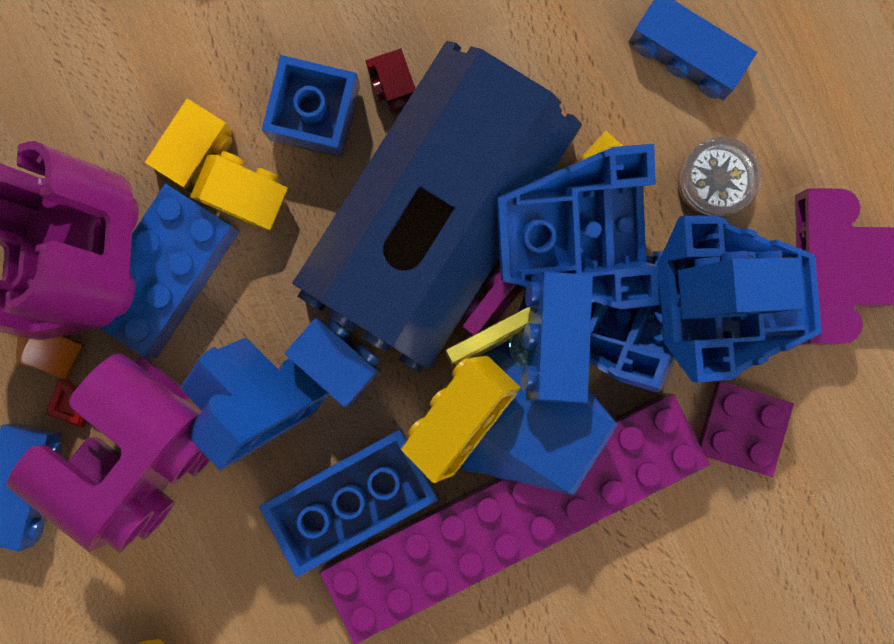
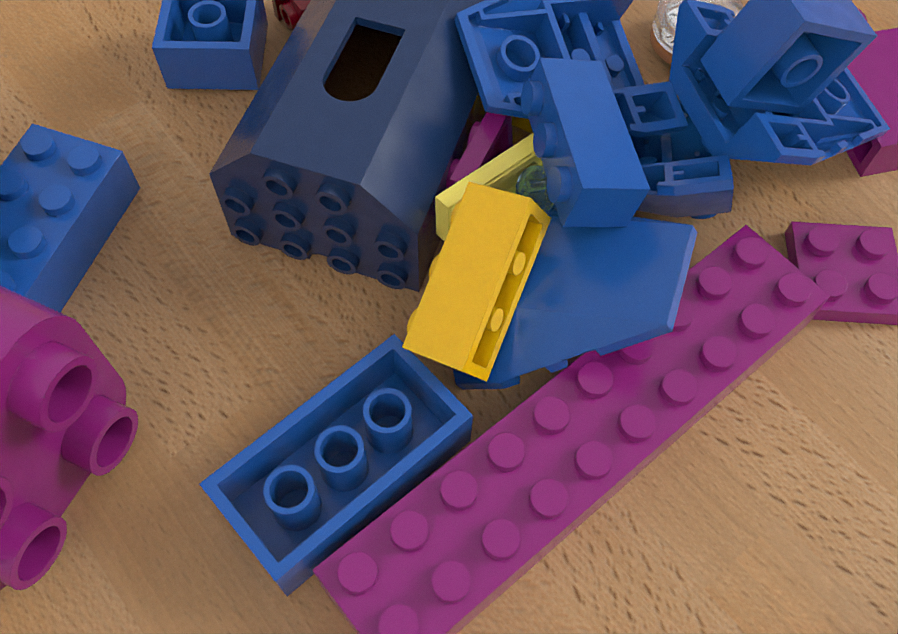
camera: 15 degrees left, 25 degrees down
(187, 143) = (67, 95): yellow brick -> none
(239, 191) = (131, 120): yellow brick -> none
(246, 400) = (157, 328): blue brick -> none
(333, 361) = (285, 277): blue brick -> none

